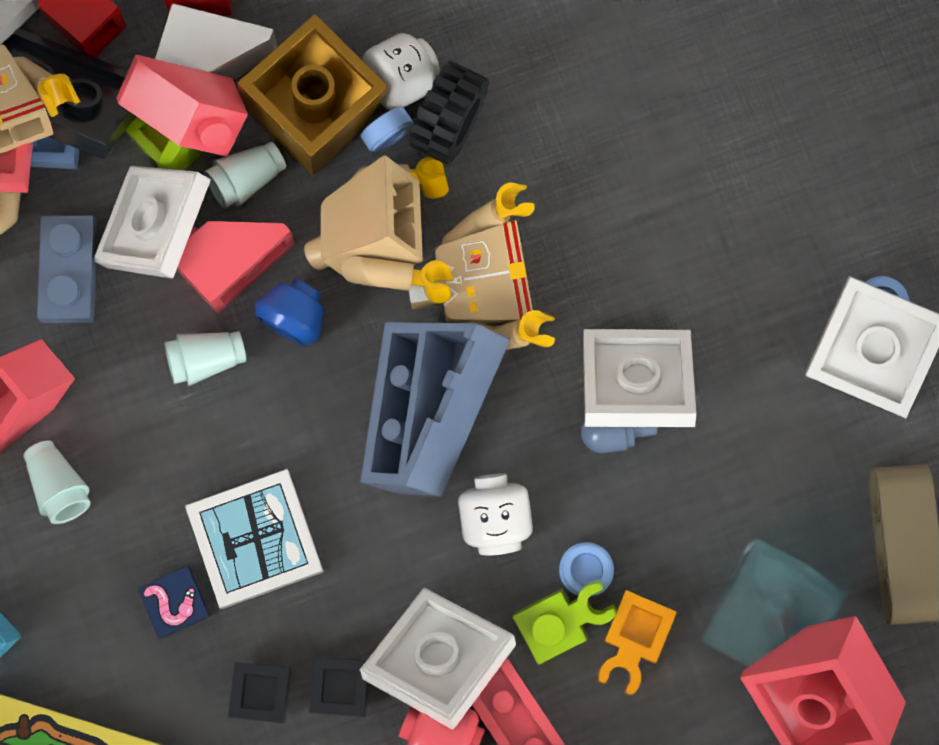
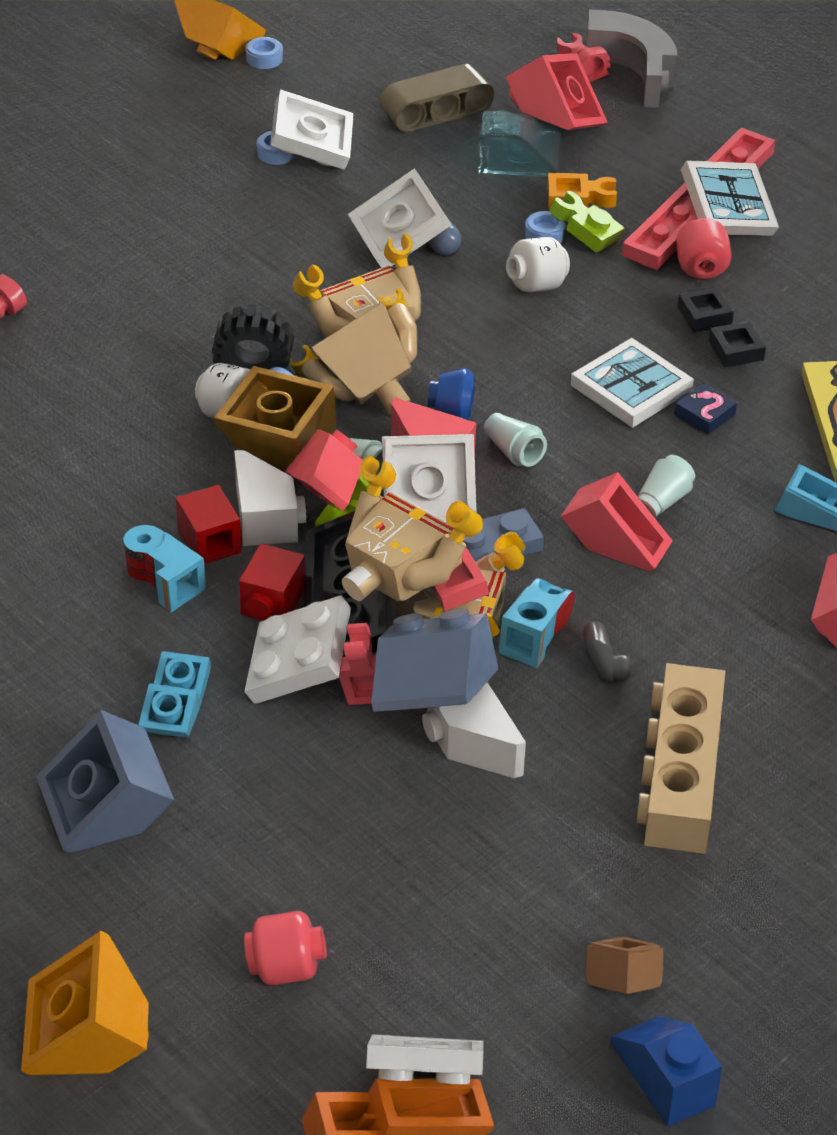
camera: 115 degrees left, 35 degrees down
(427, 402) = (480, 300): sand blue wedge -> none
(438, 658) = (654, 256): white tile -> none

